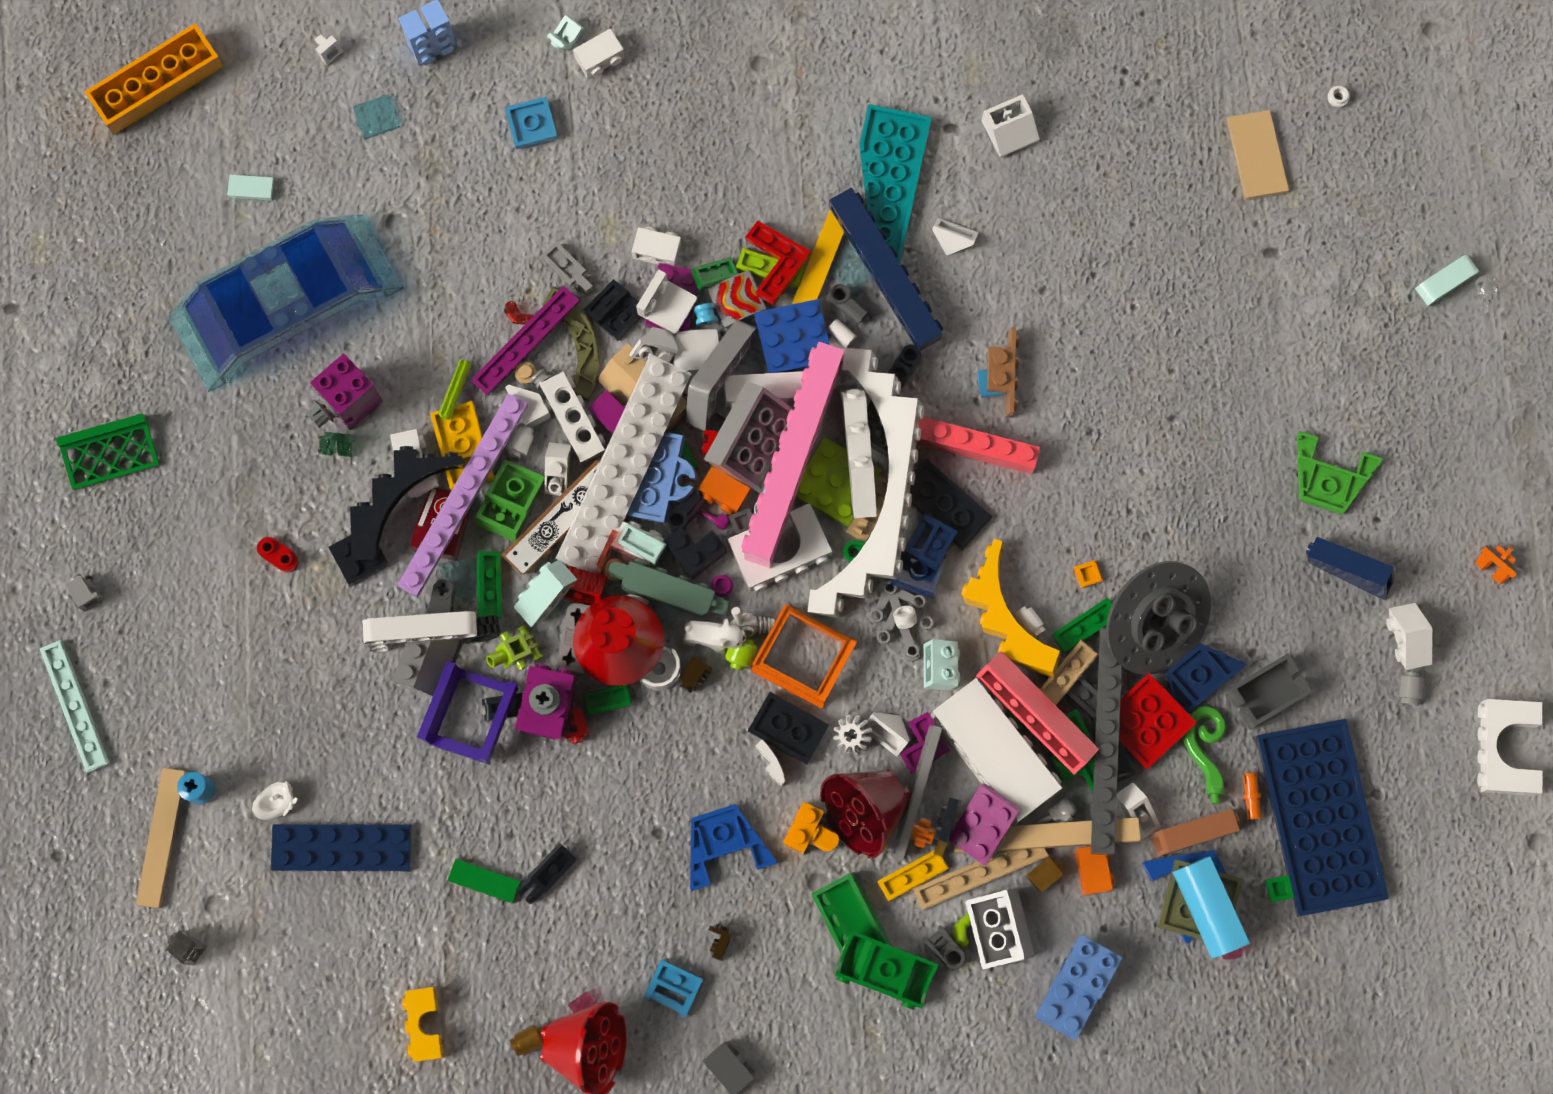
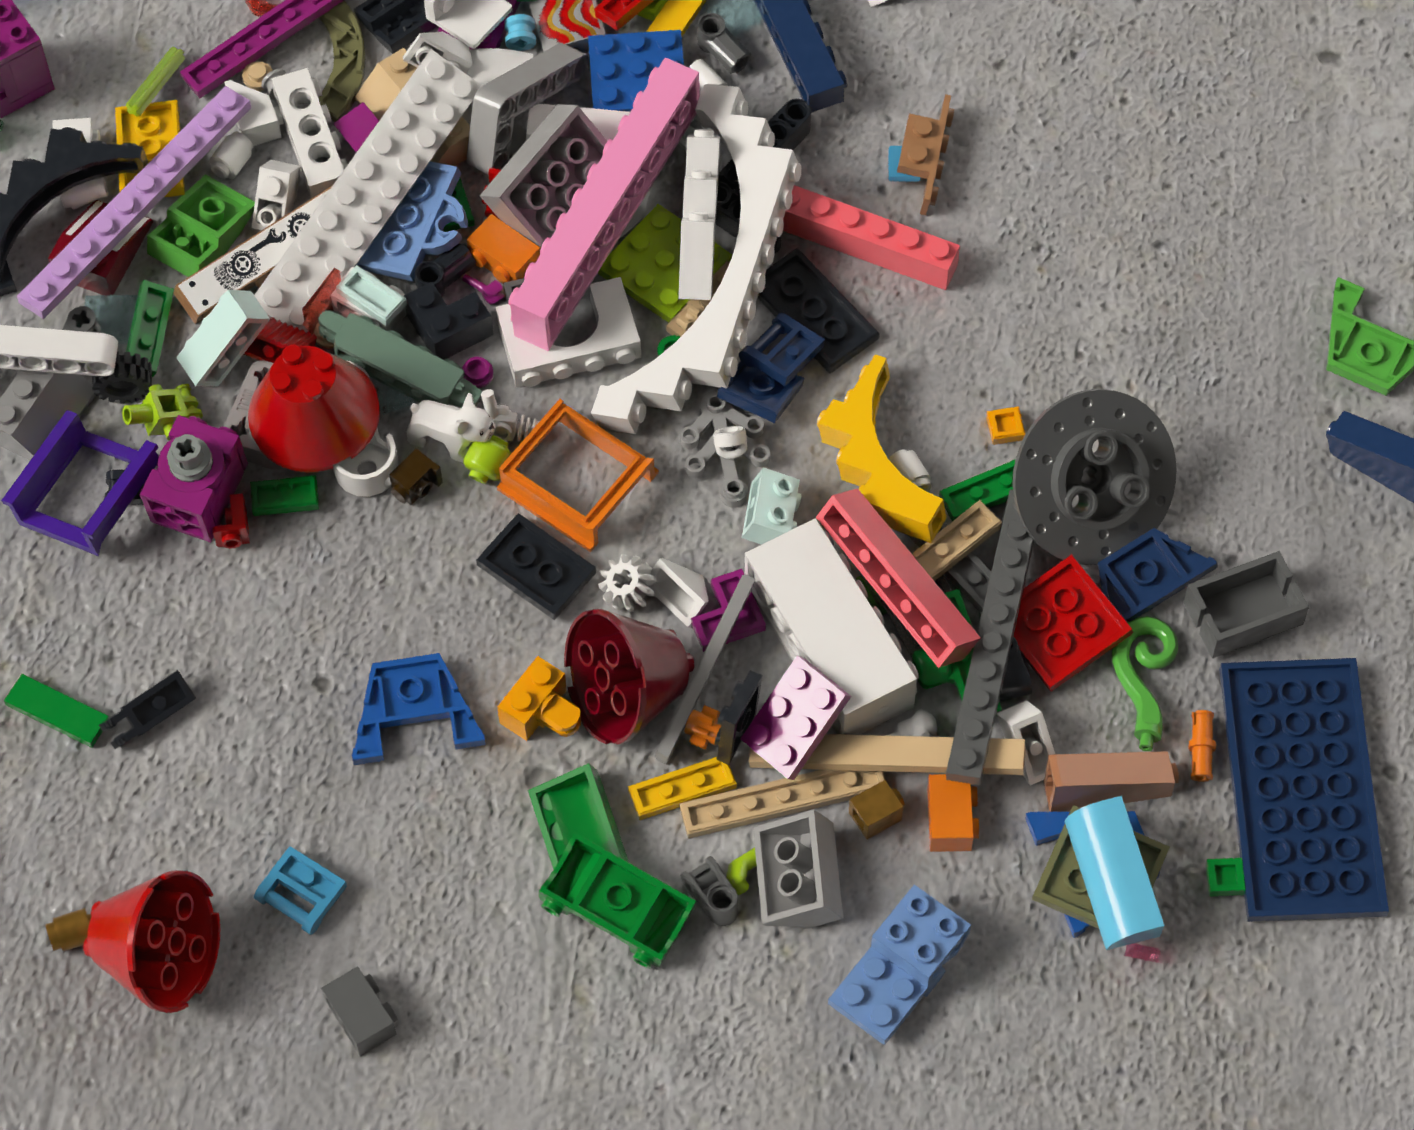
camera: 10 degrees right, 15 degrees down
(720, 946) = (381, 840): dark brown bracket -> none
(774, 768) = (503, 611): white slope -> none

